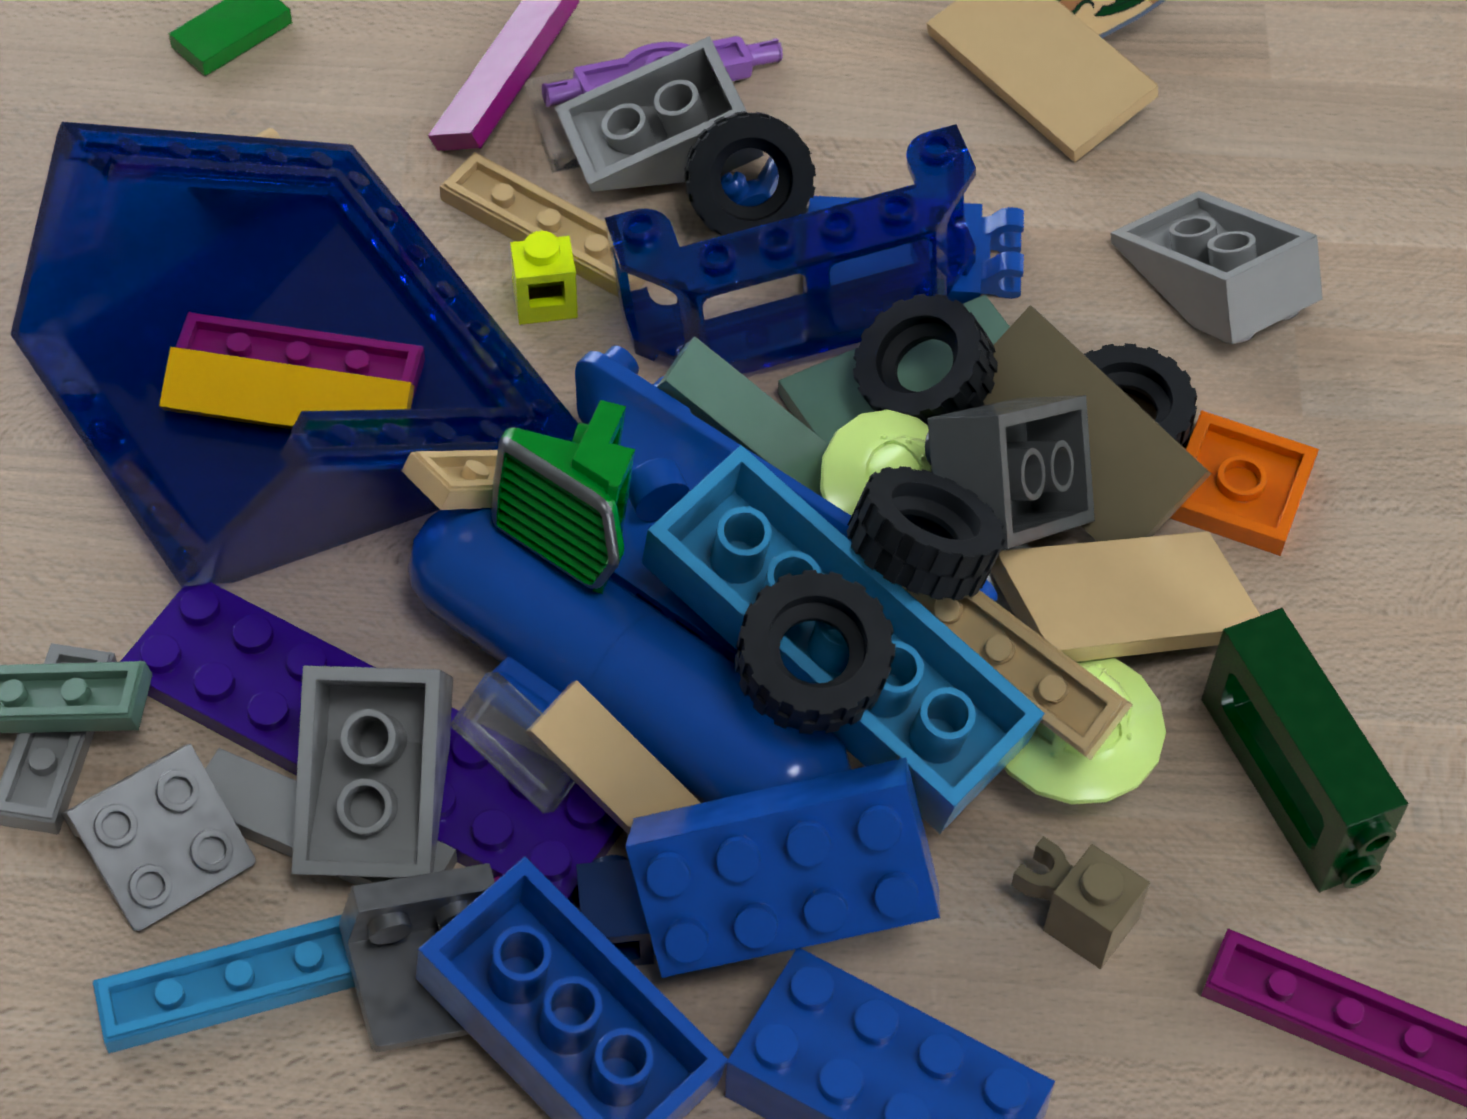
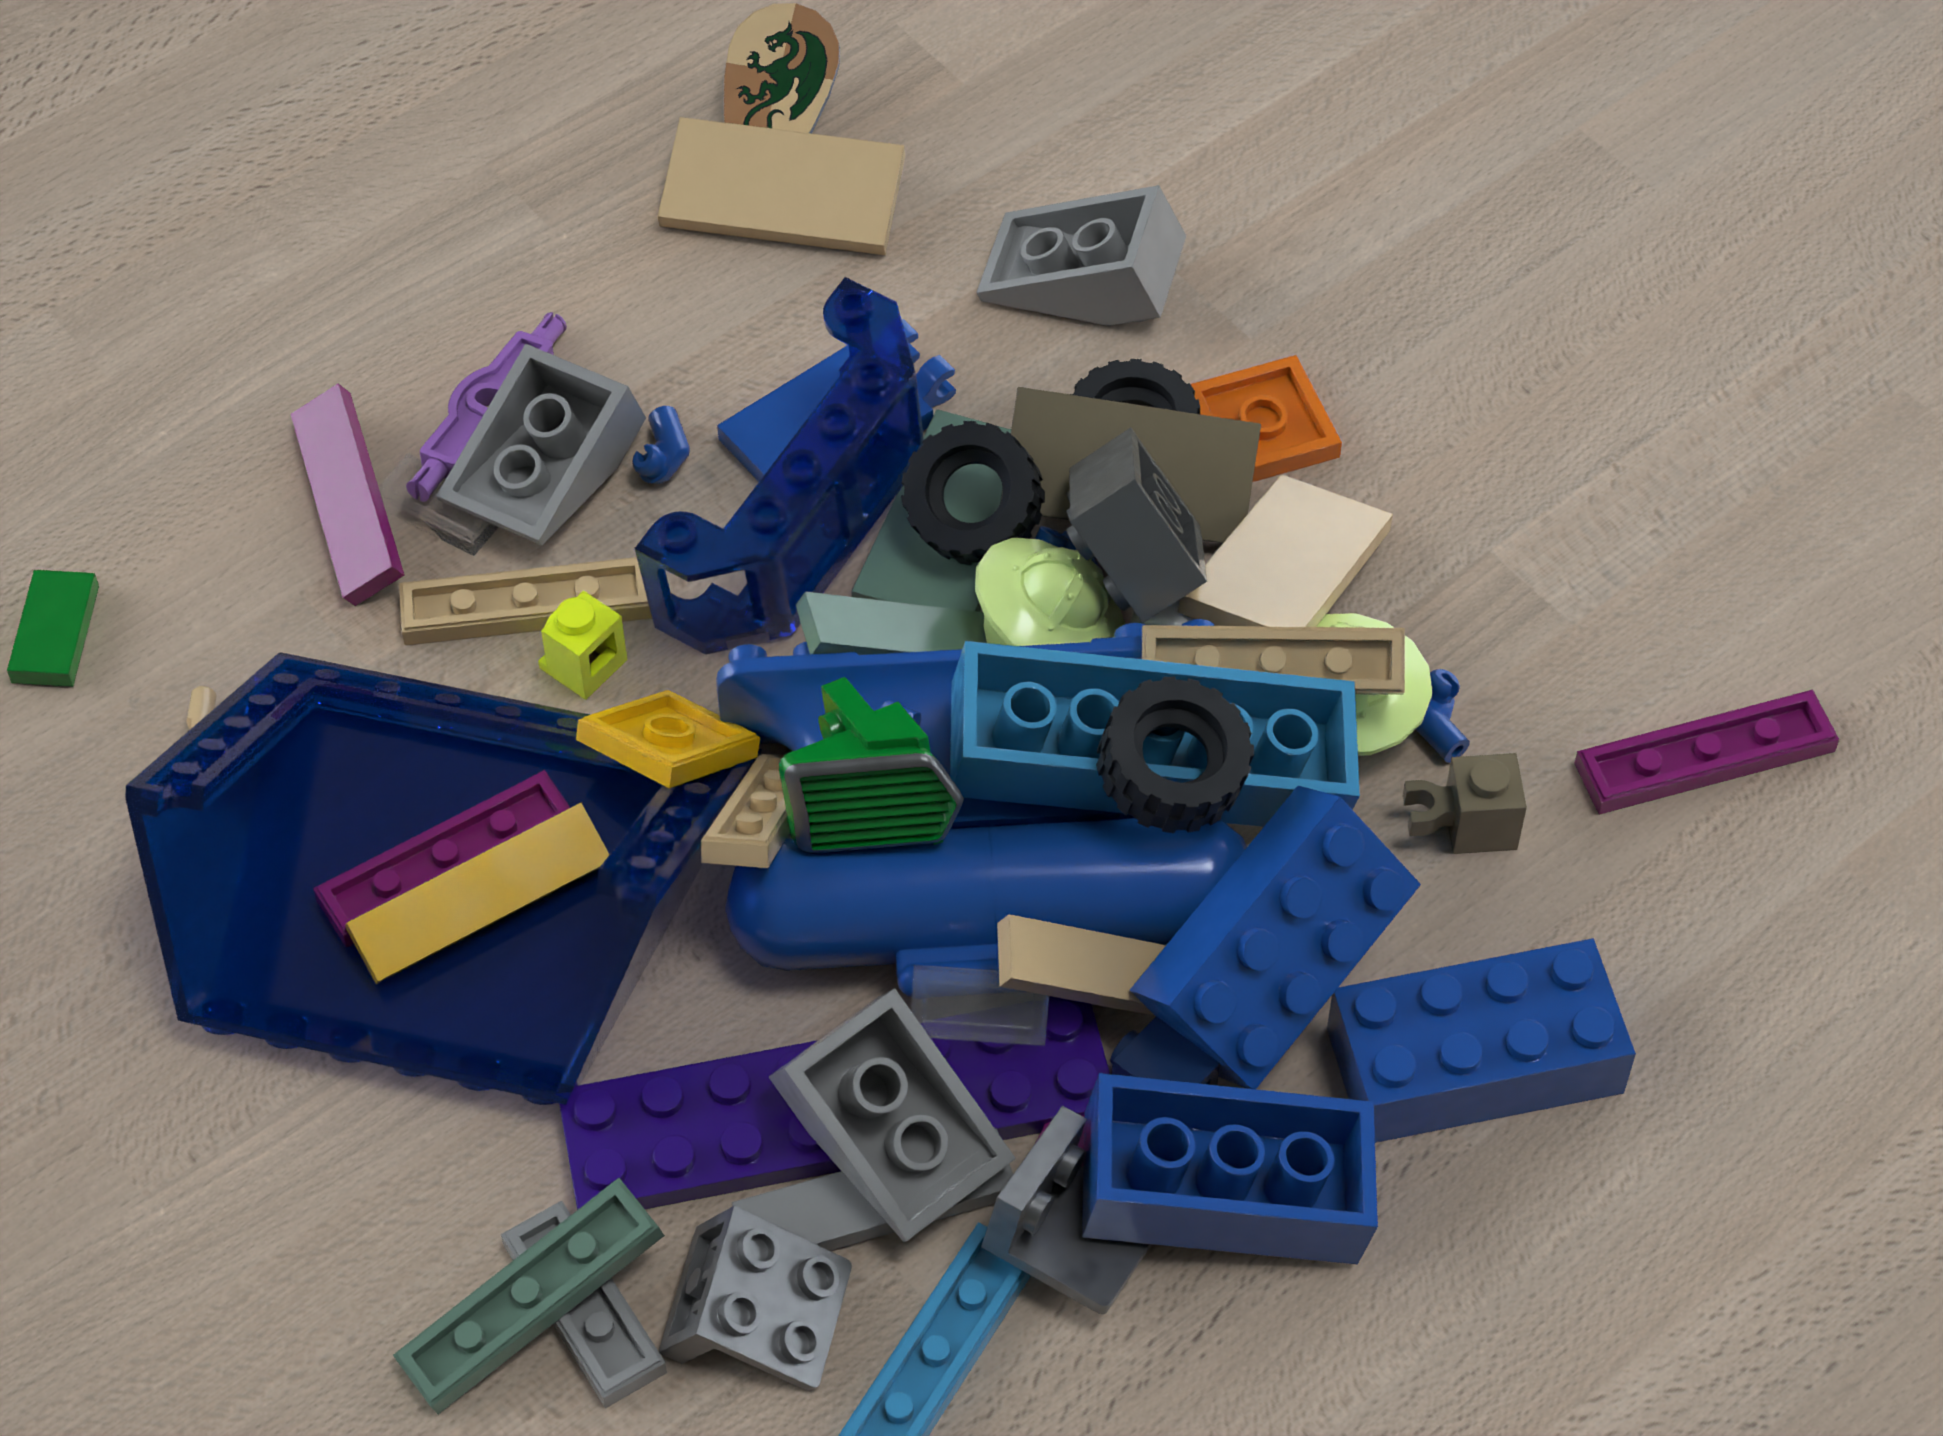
camera: 40 degrees left, 0 degrees up
(519, 382) = (668, 738): none -> yellow tile
(738, 133) = (717, 435): black tyre -> none
(926, 533) = (1155, 609): black tyre -> none
(1139, 808) = (1436, 725): none -> blue arm
(1303, 751) = (1517, 583): dark green piece -> none

